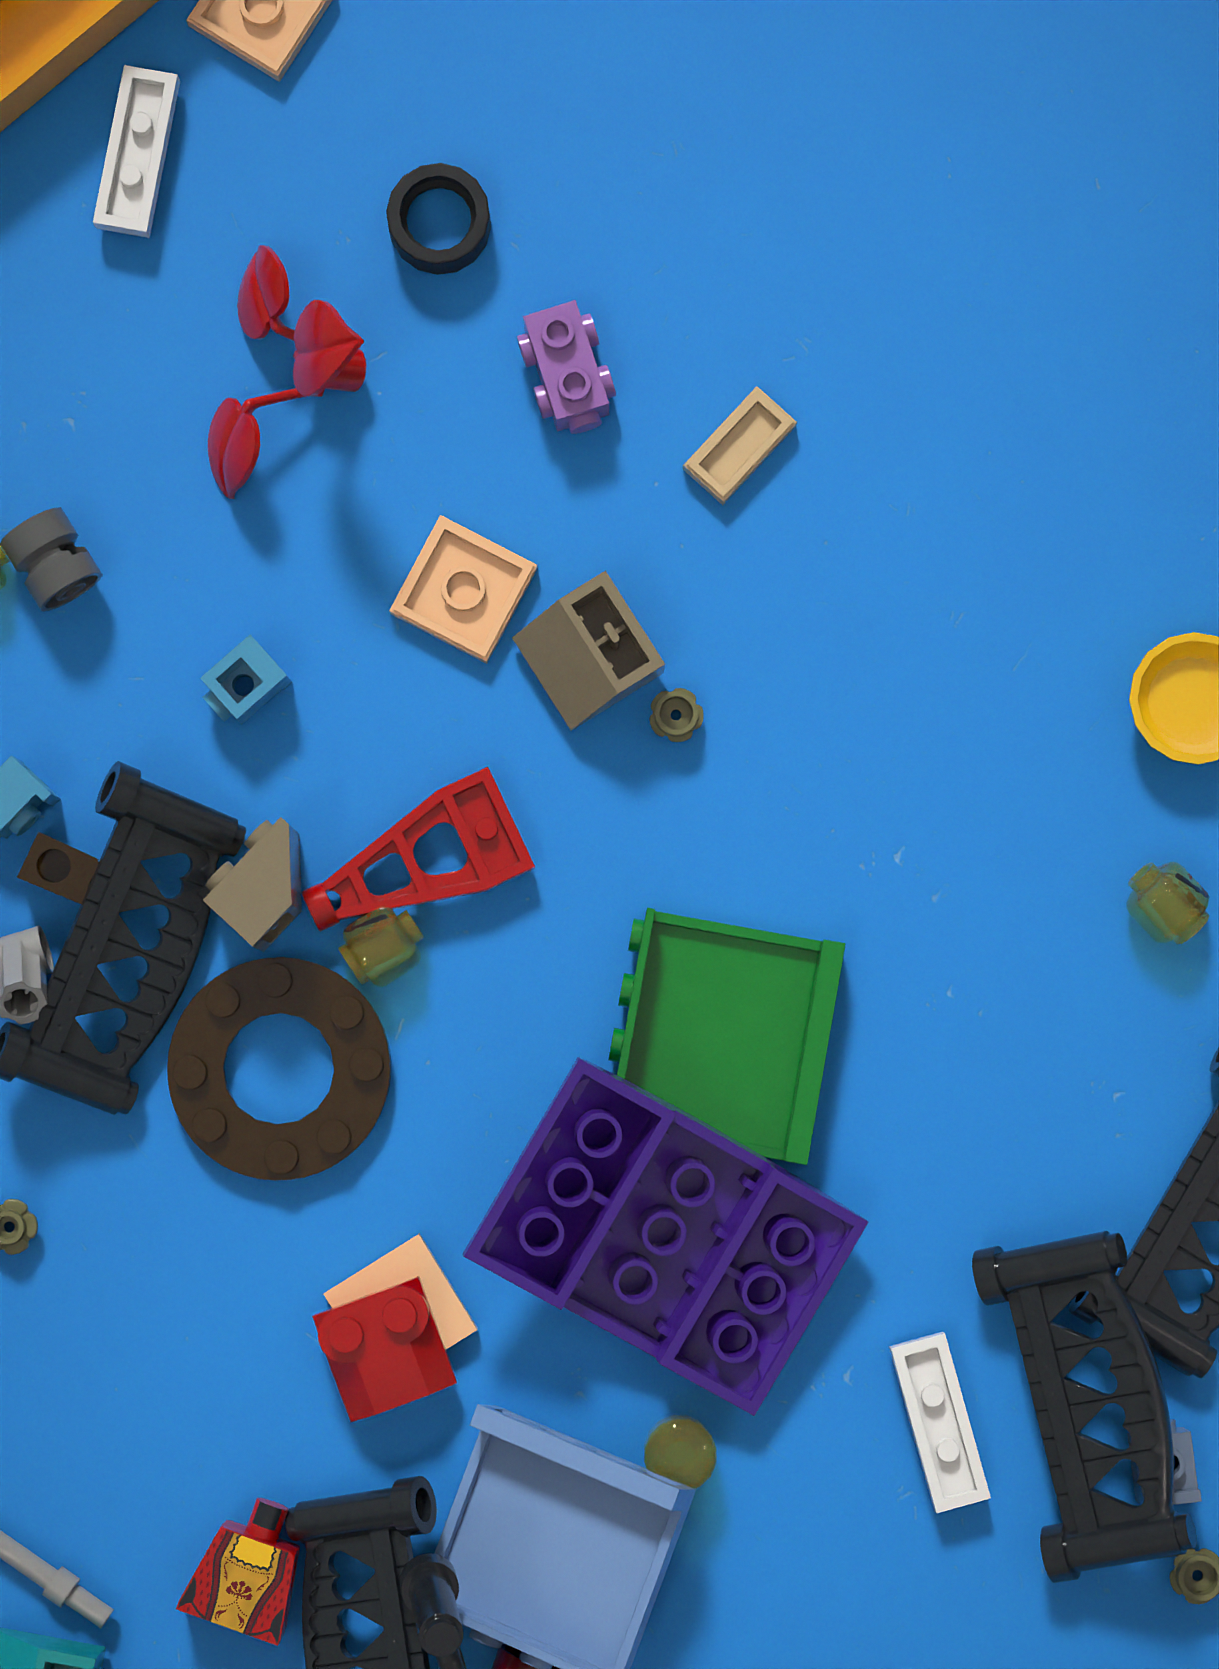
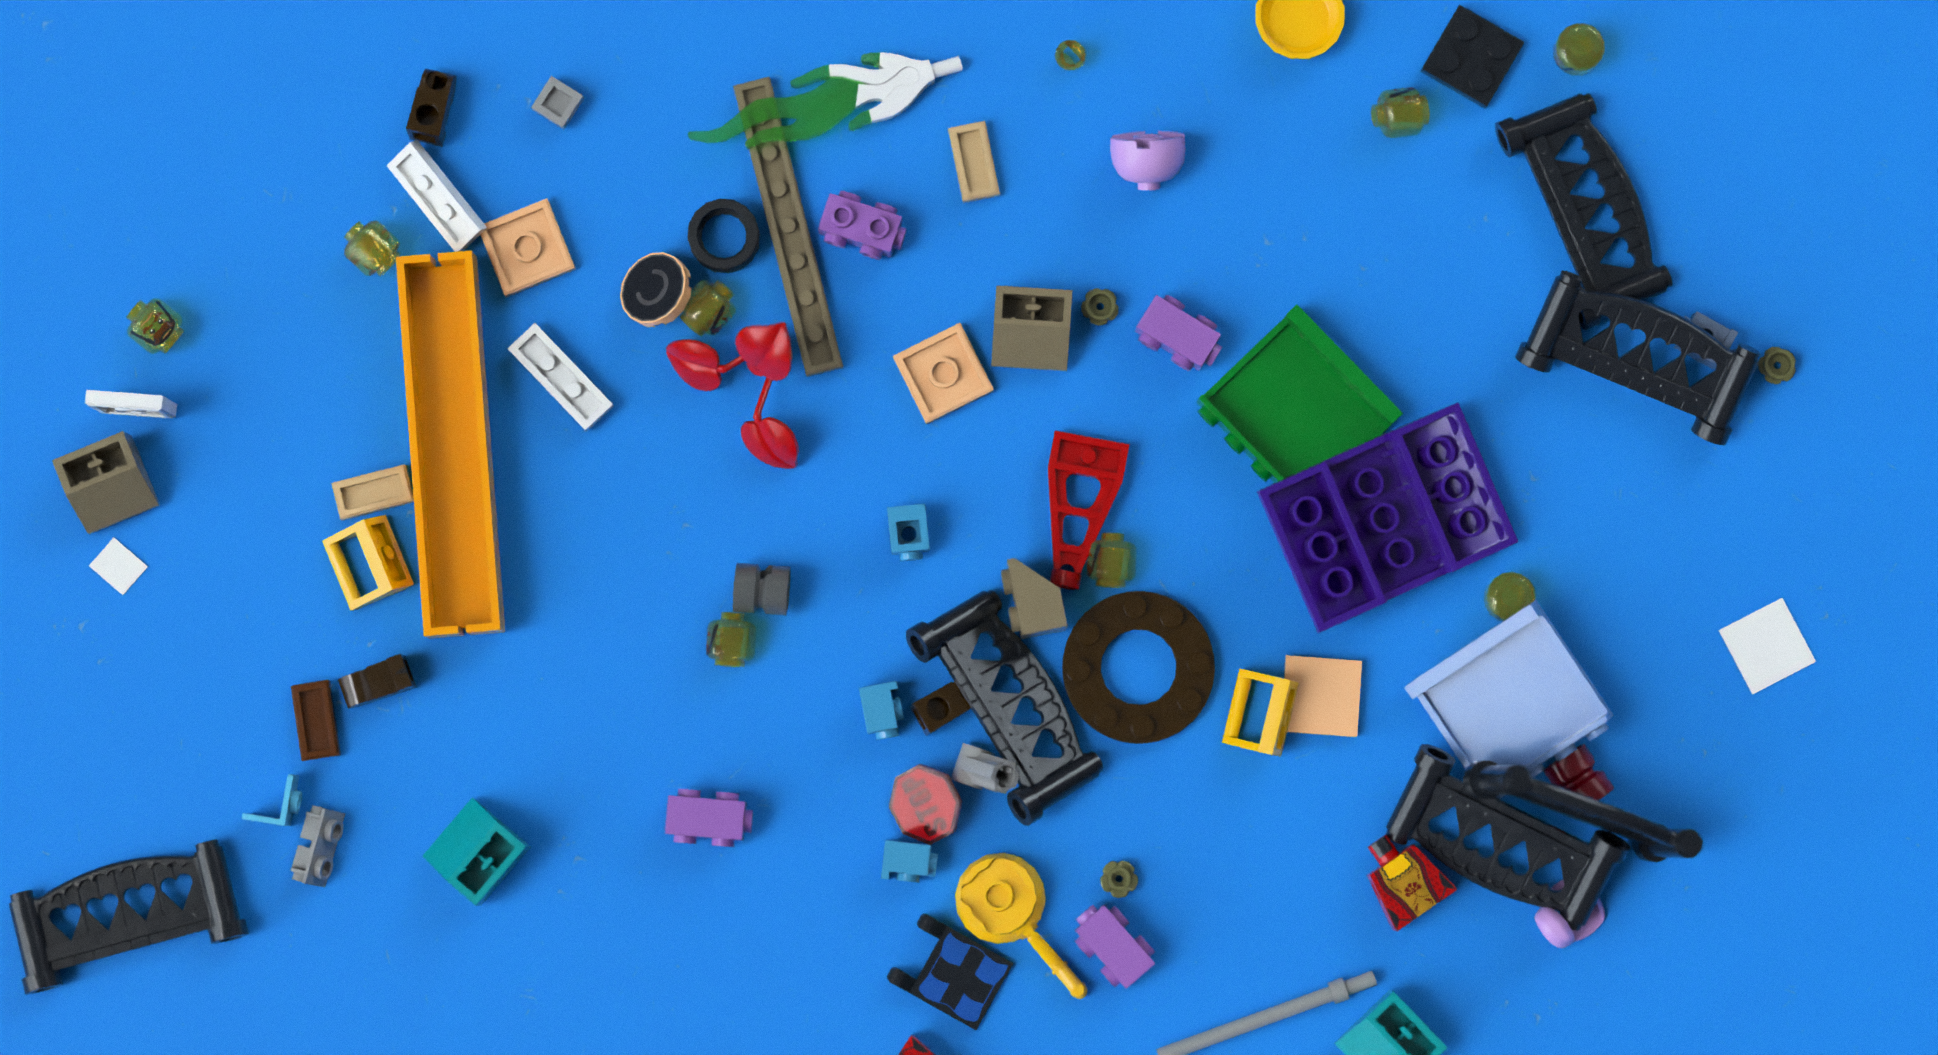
camera: 50 degrees left, 0 degrees up
(316, 184) = (655, 289): none -> black tile
(336, 1275) = (1277, 716): none -> yellow tile
(340, 260) = (708, 308): none -> clear yellow head
(384, 1349) = (1336, 718): red slope -> none
(505, 286) = (791, 240): none -> dark tan tile
(710, 844) = (1183, 336): none -> medium lavender brick
(715, 235) = (846, 89): none -> piece
(892, 641) = (1148, 157): none -> lavender cylinder
(937, 462) = (1066, 61): none -> hinge
(939, 1422) = (1594, 444): white plate -> none

